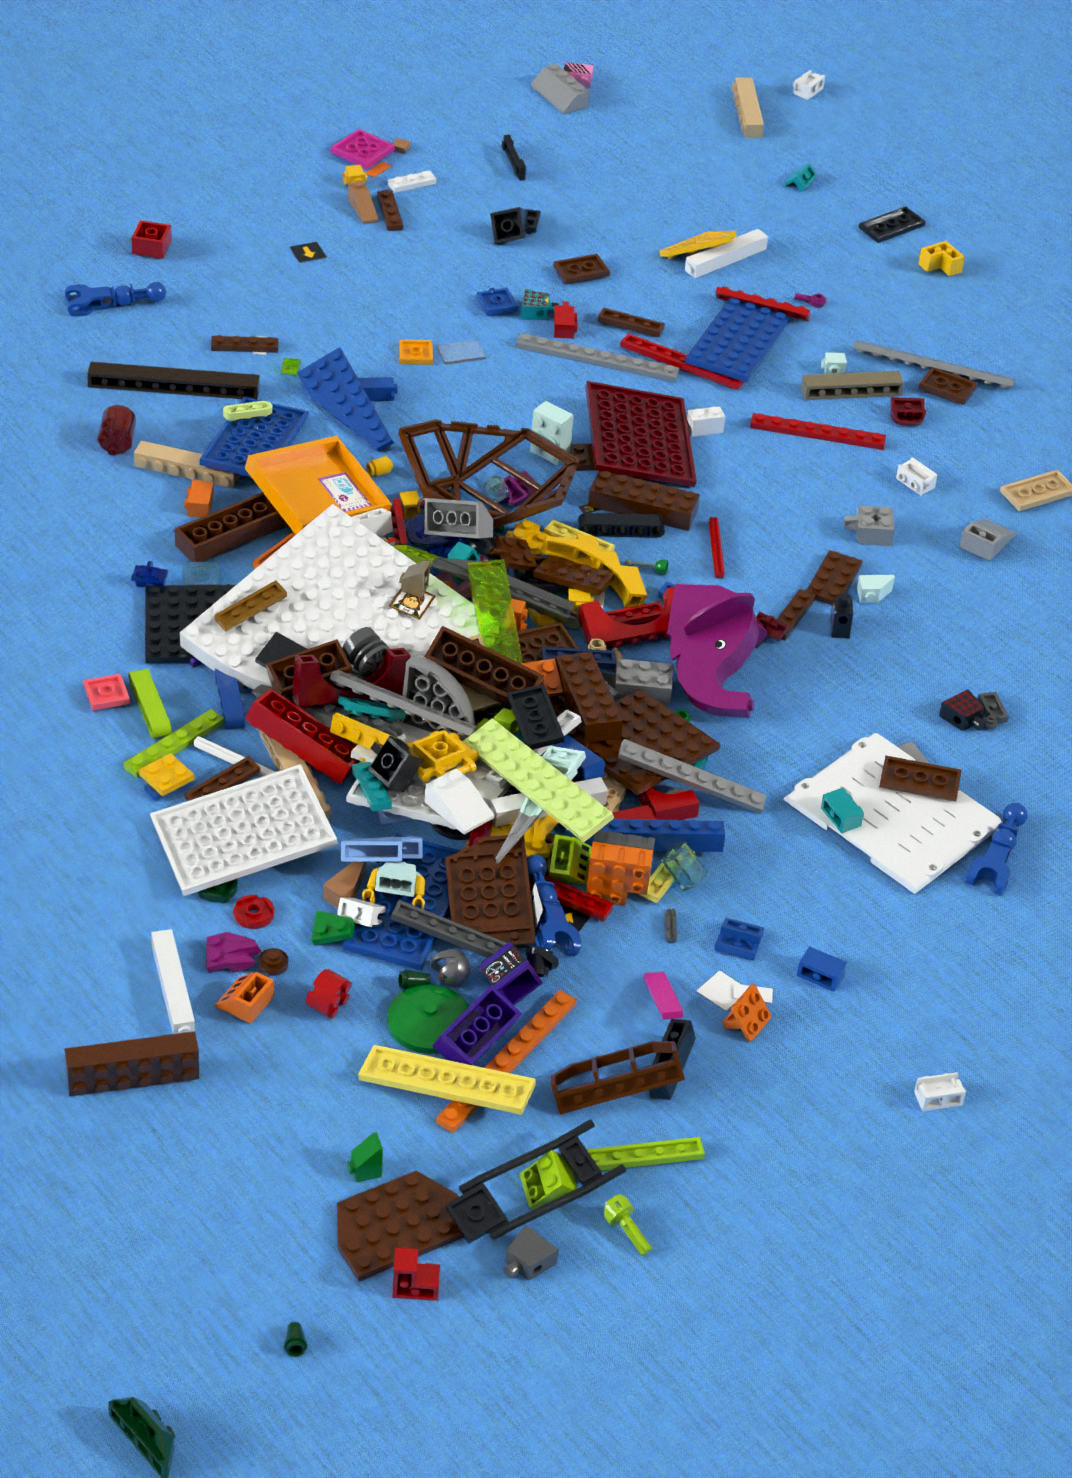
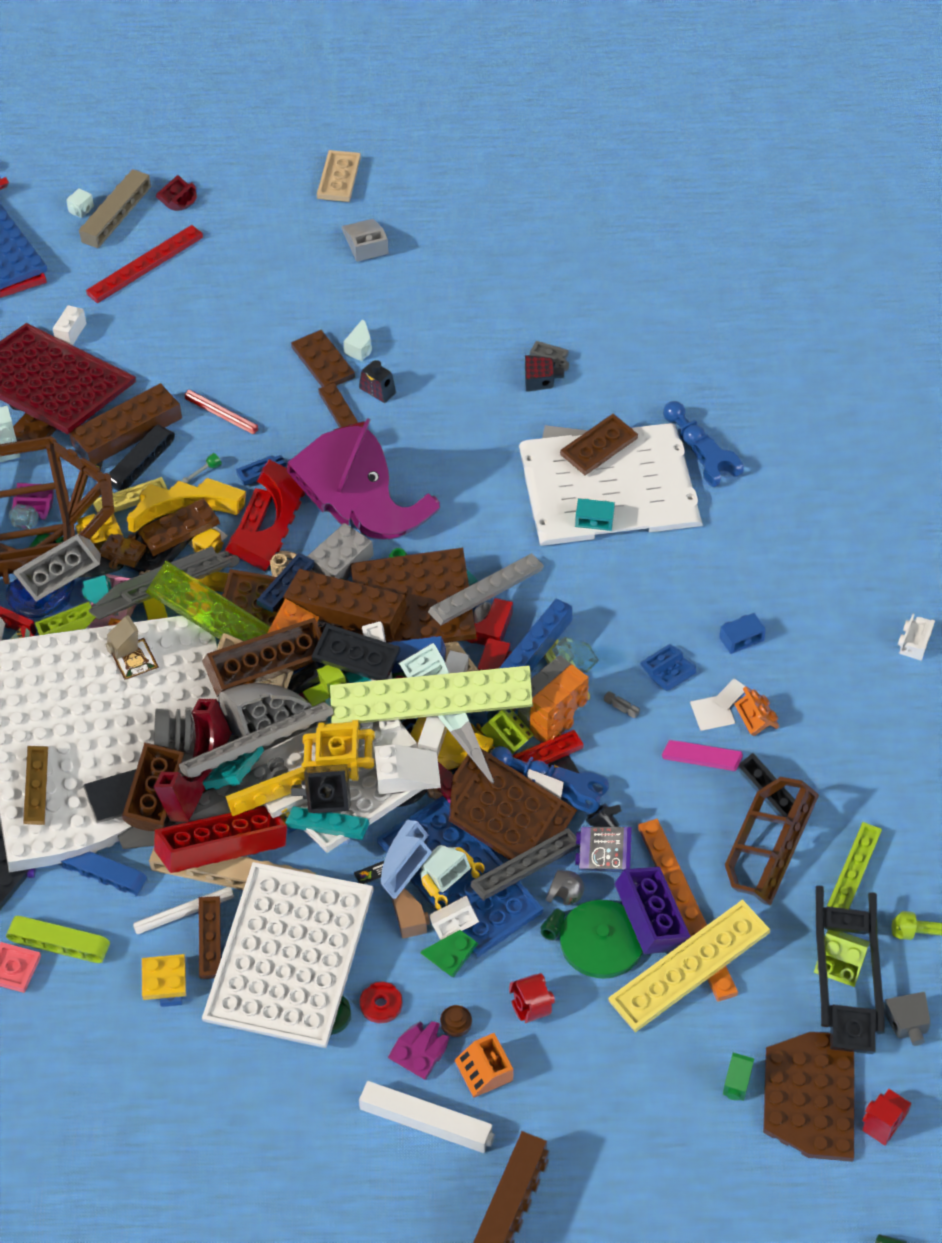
camera: 50 degrees left, 10 degrees up
(175, 741) = (122, 949): lime plate -> none
(872, 525) = (290, 297): light grey hinge -> none
(916, 476) = (257, 236): white hinge -> none
(941, 256) = (23, 58): yellow brick -> none
(948, 386) = (171, 152): reddish brown plate -> none
(973, 374) = (141, 142): light grey plate -> none

